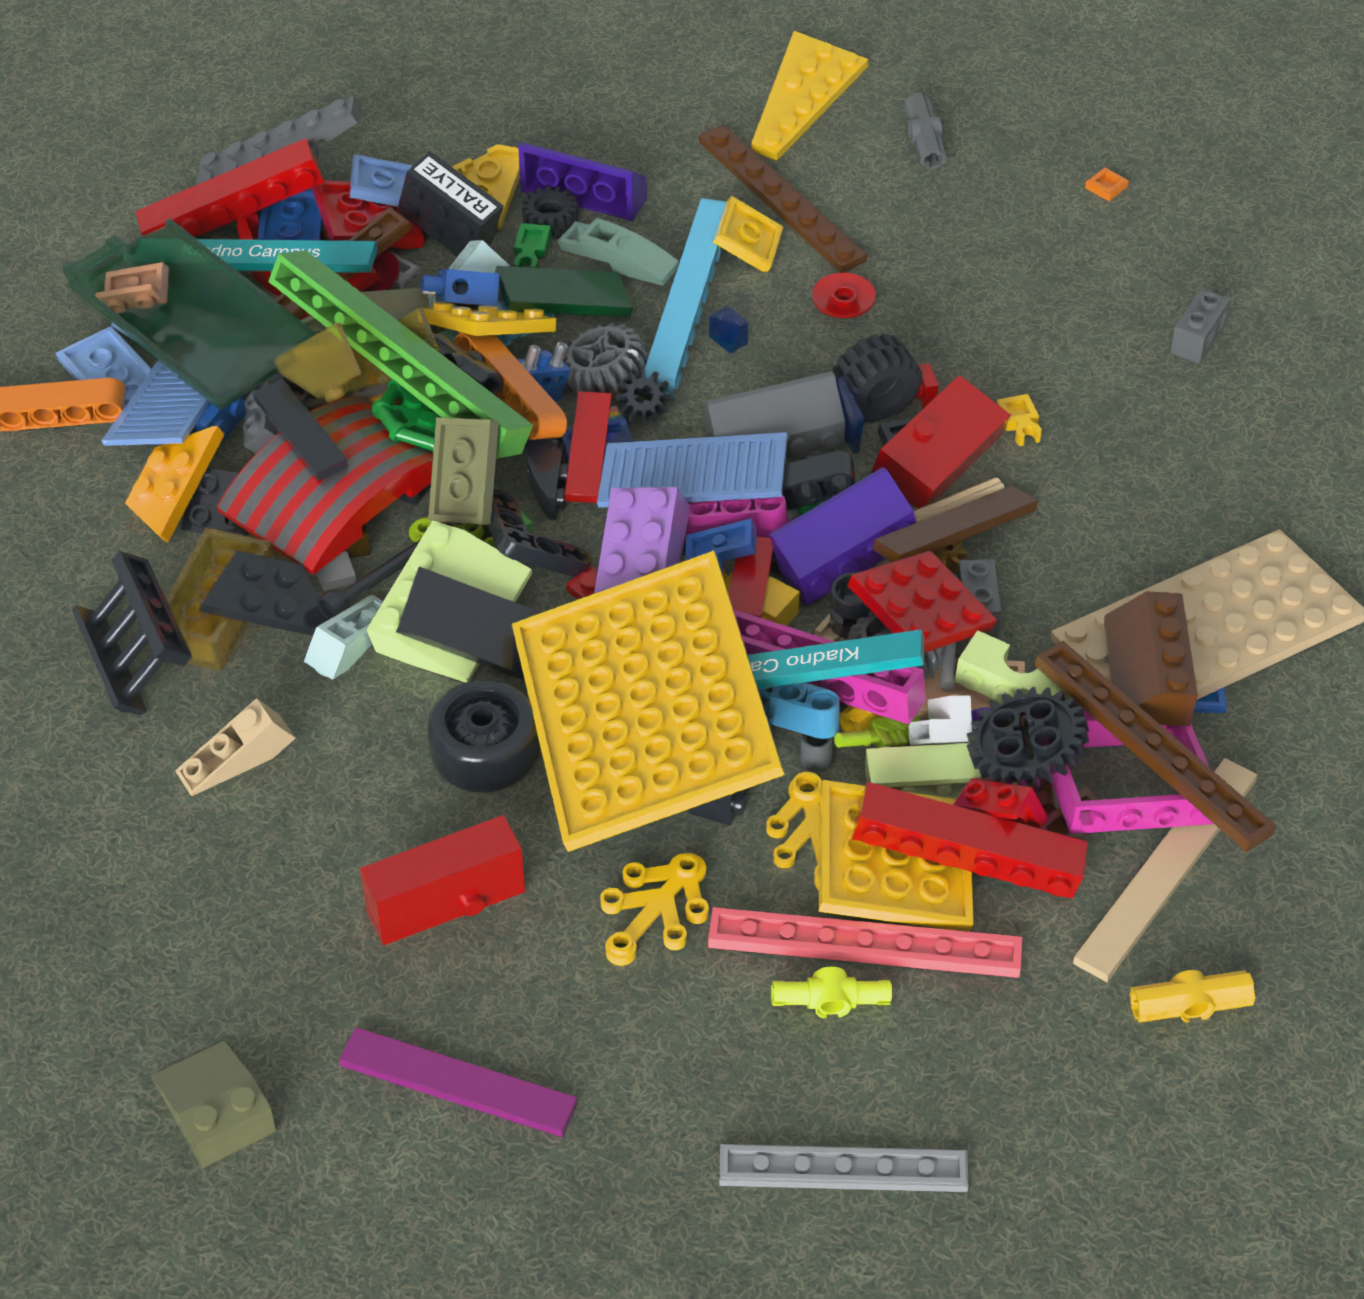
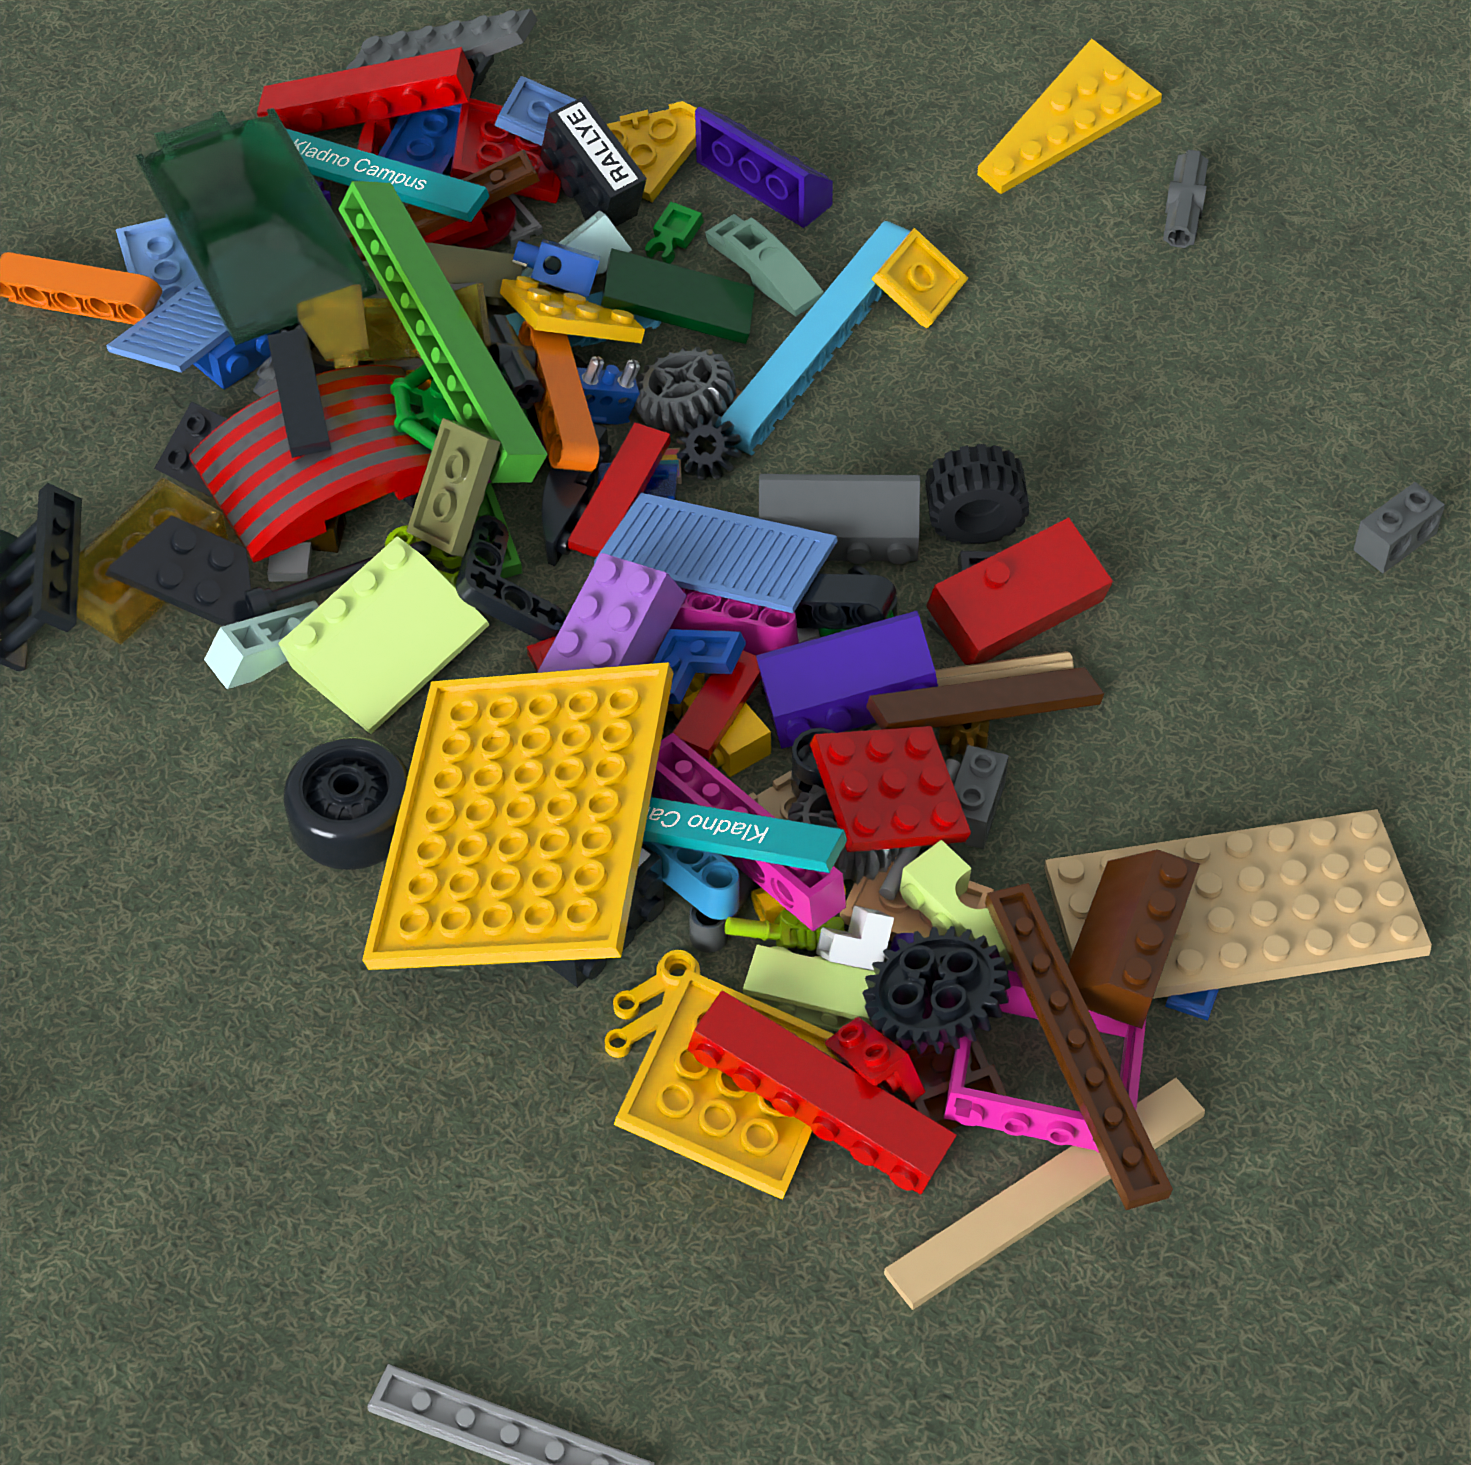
camera: 20 degrees right, 5 degrees up
(135, 287) = (214, 178): nougat bracket -> none
(171, 480) = (159, 412): light orange wing -> none
(242, 744) = (99, 737): tan slope -> none
(443, 880) = (225, 961): red brick -> none
(459, 1082) = (149, 1199): magenta tile -> none
(463, 621) = (381, 659): black tile -> none
(550, 200) = (713, 181): black tyre -> none
(656, 902) = (451, 1055): yellow plant -> none
(728, 329) = (845, 388): clear blue slope -> none
(783, 199) = (985, 244): reddish brown plate -> none
(831, 992) = (589, 1224): neon yellow pin -> none
(843, 295) = (996, 380): red dish -> none
(853, 416) = (925, 531): clear blue piece -> none
(865, 942) = (659, 1176): coral plate -> none
(929, 386) = (1038, 514): red plate -> none
(1023, 417) = (1132, 584): yellow plate -> none
(1106, 184) = (1375, 318): orange tile -> none
(1192, 996) = (998, 1361): yellow piece -> none

